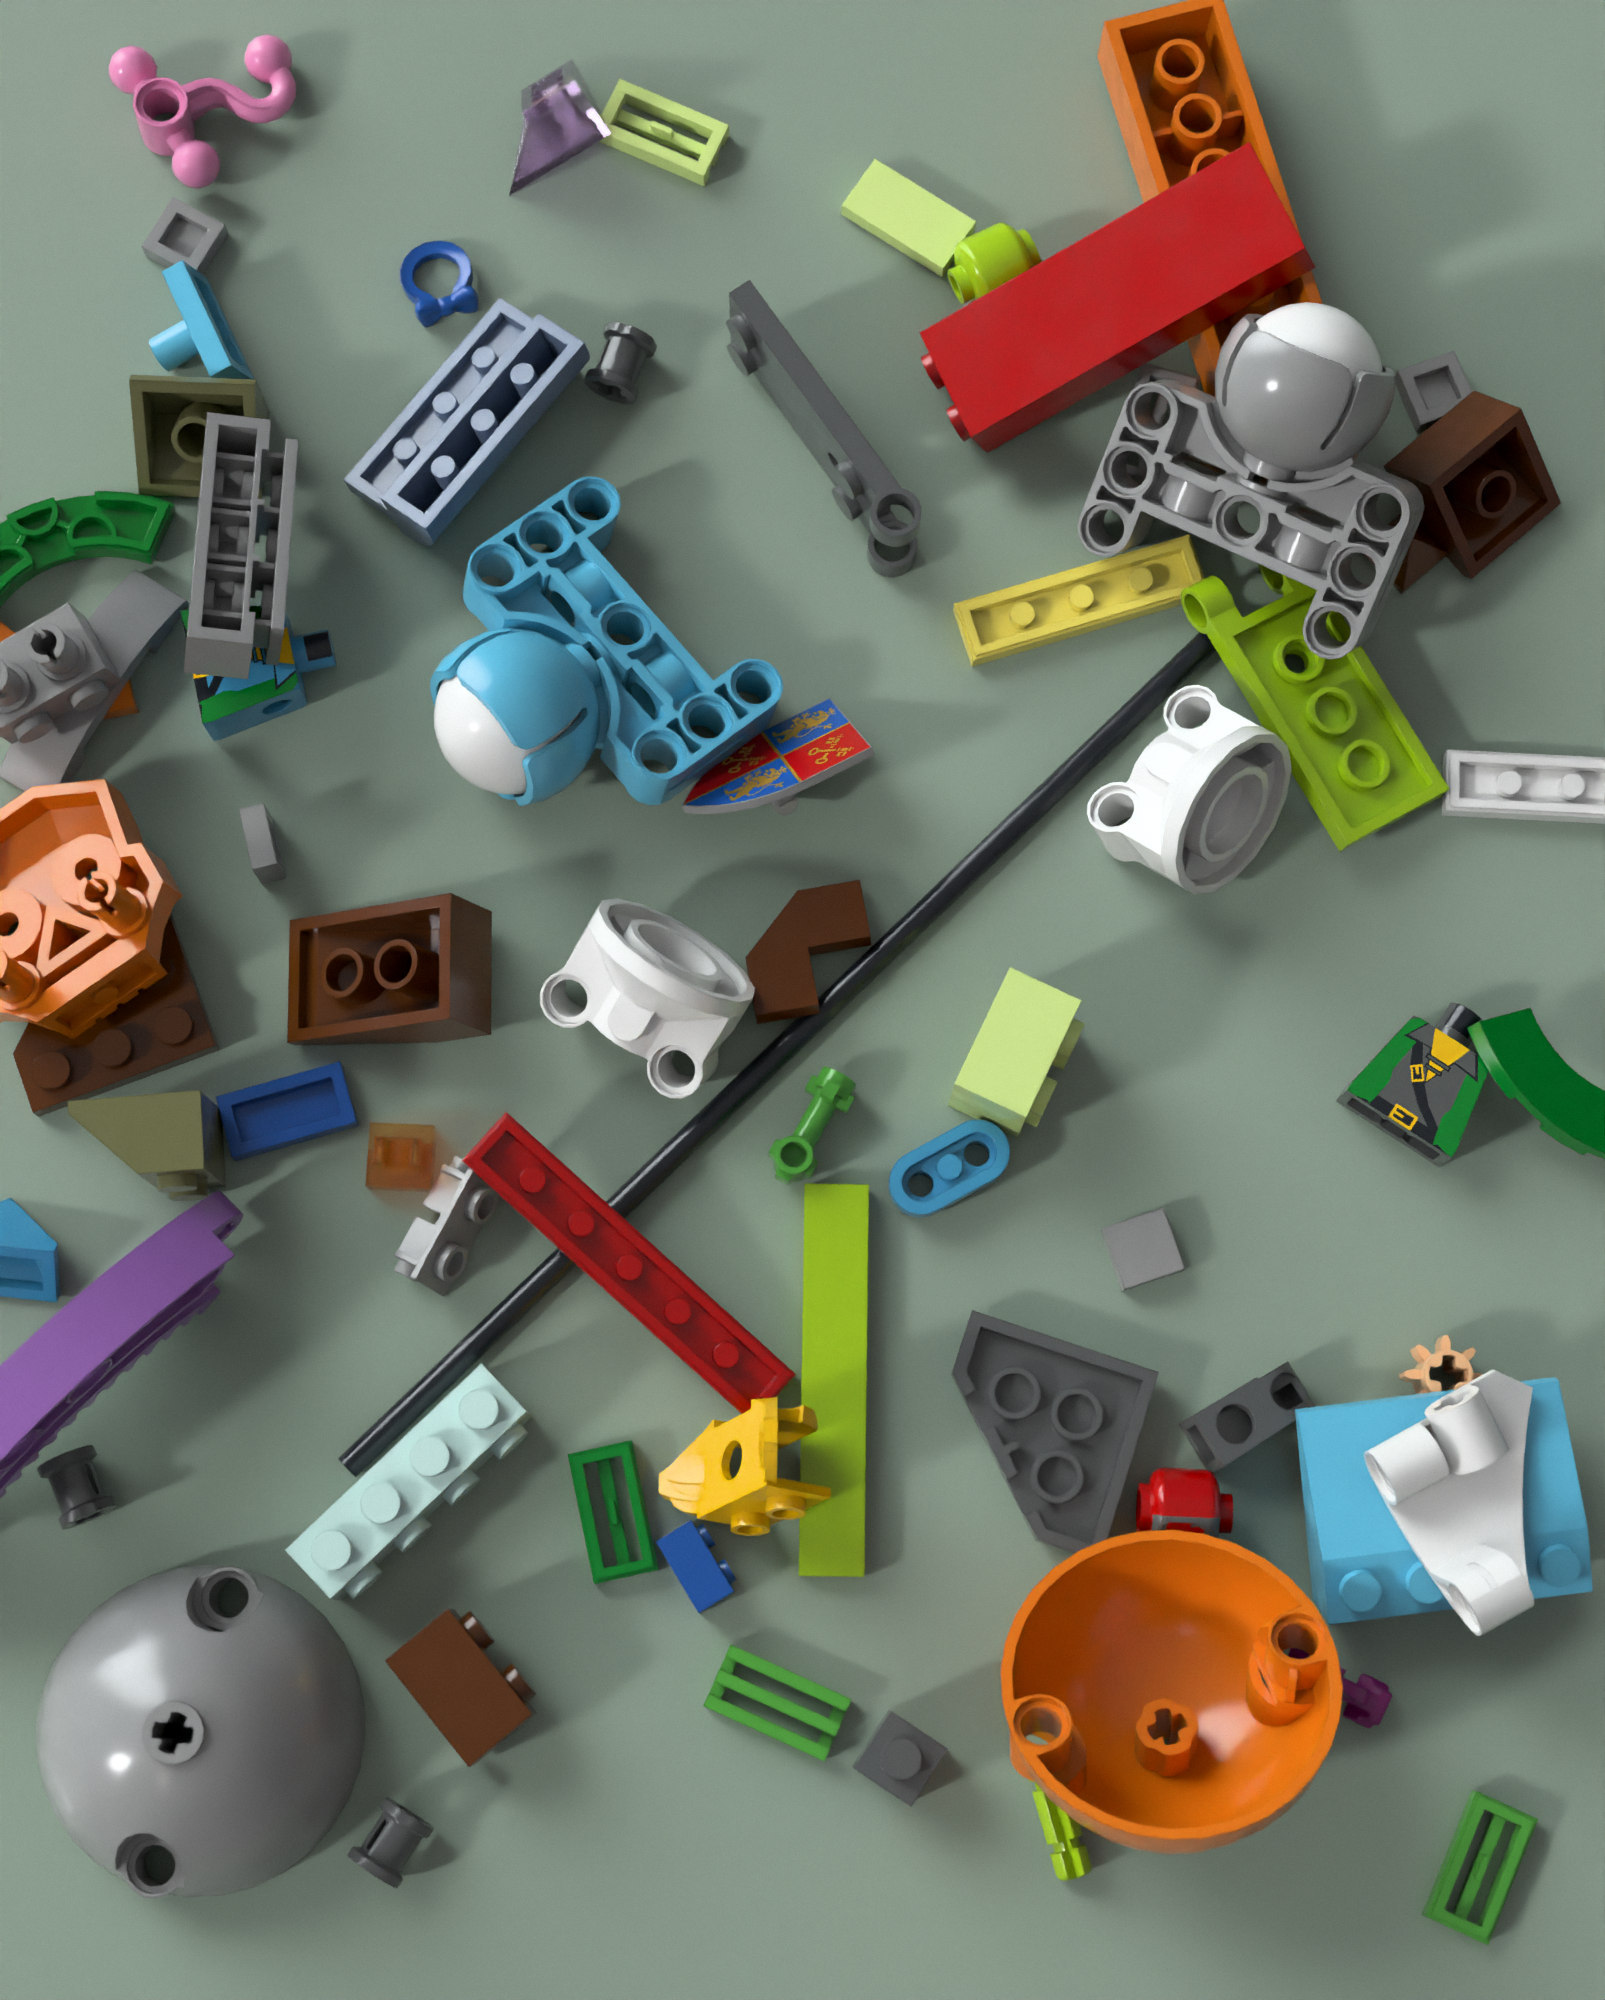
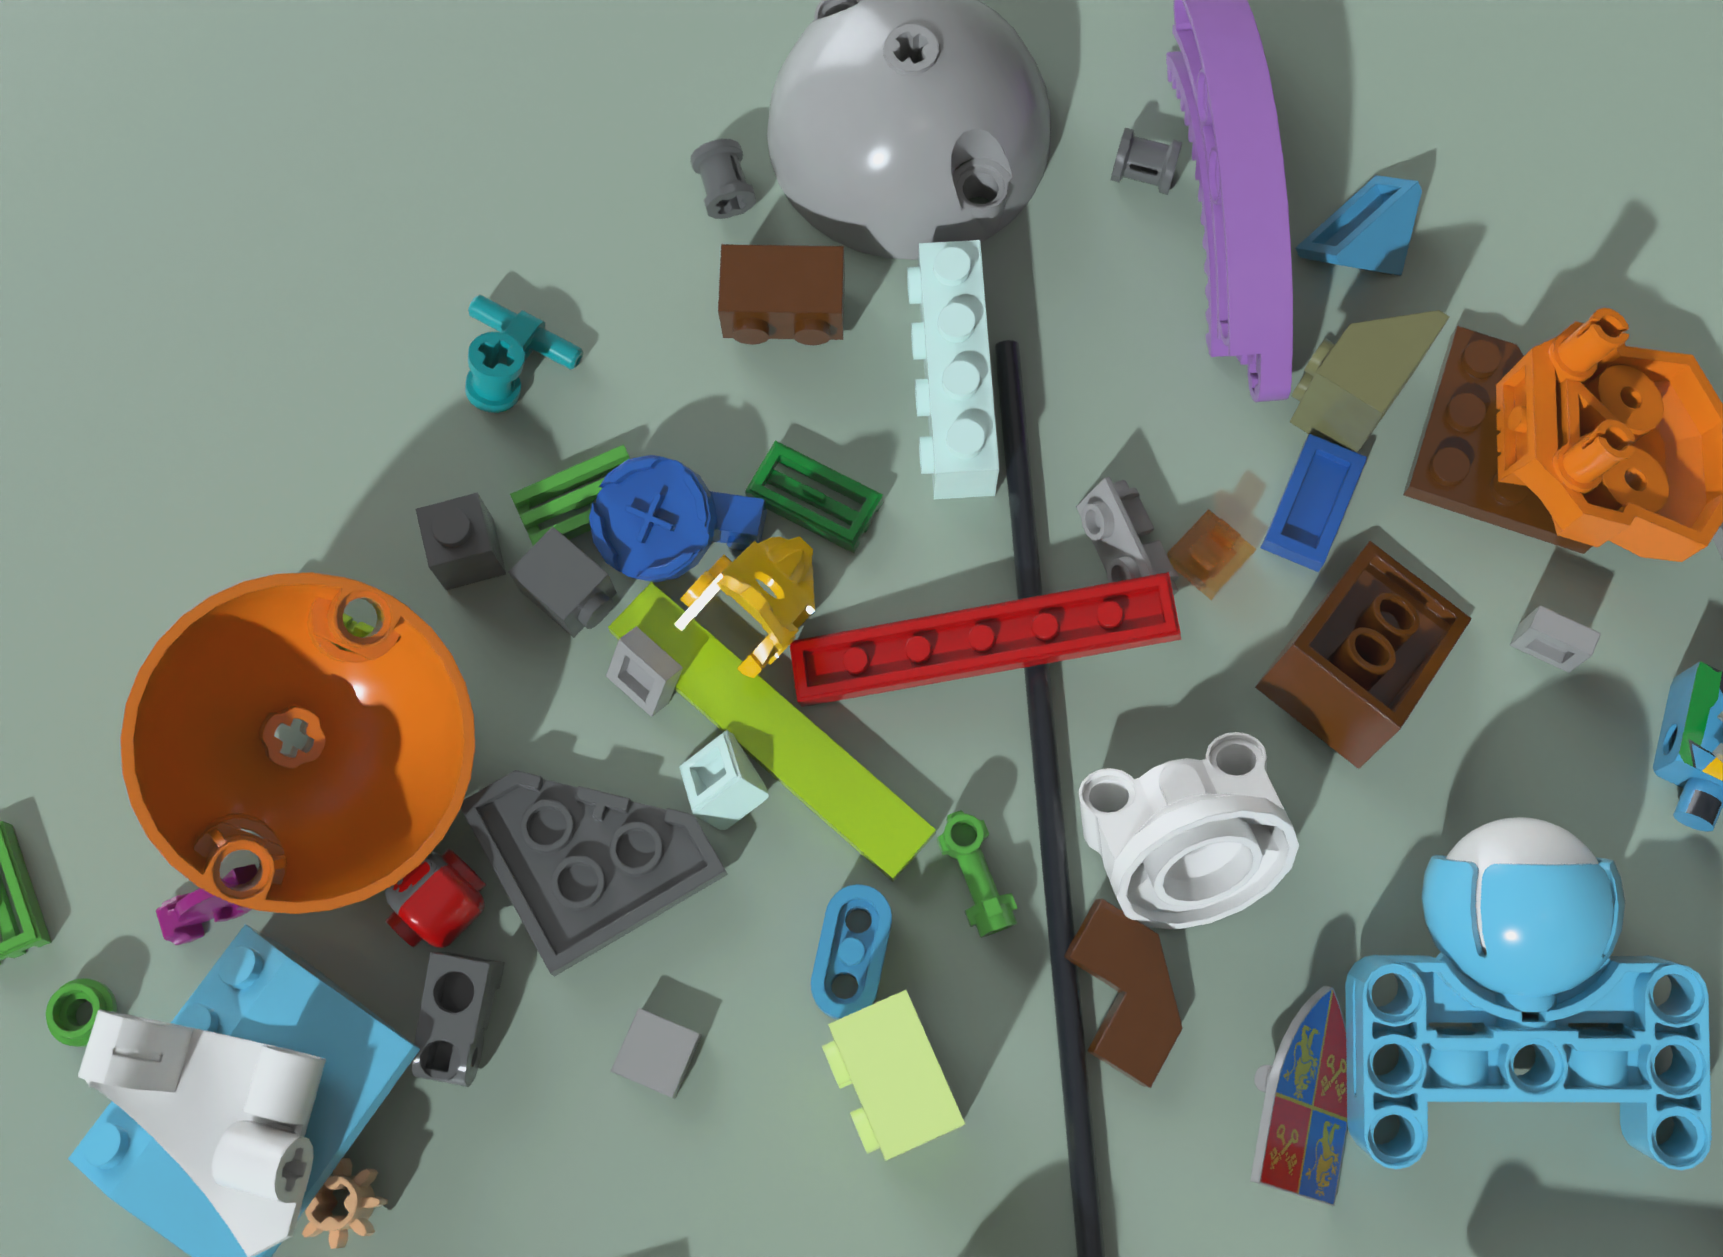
camera: 135 degrees right, 5 degrees down
(708, 1877) = (499, 356): none -> teal piece
(749, 1614) = (653, 518): none -> blue tile
(860, 1640) = (564, 583): none -> dark grey brick
(876, 1511) = (644, 671): none -> light grey tile
(907, 1377) = (722, 782): none -> light aqua slope
(1516, 1706) = (64, 1004): none -> bright green plate

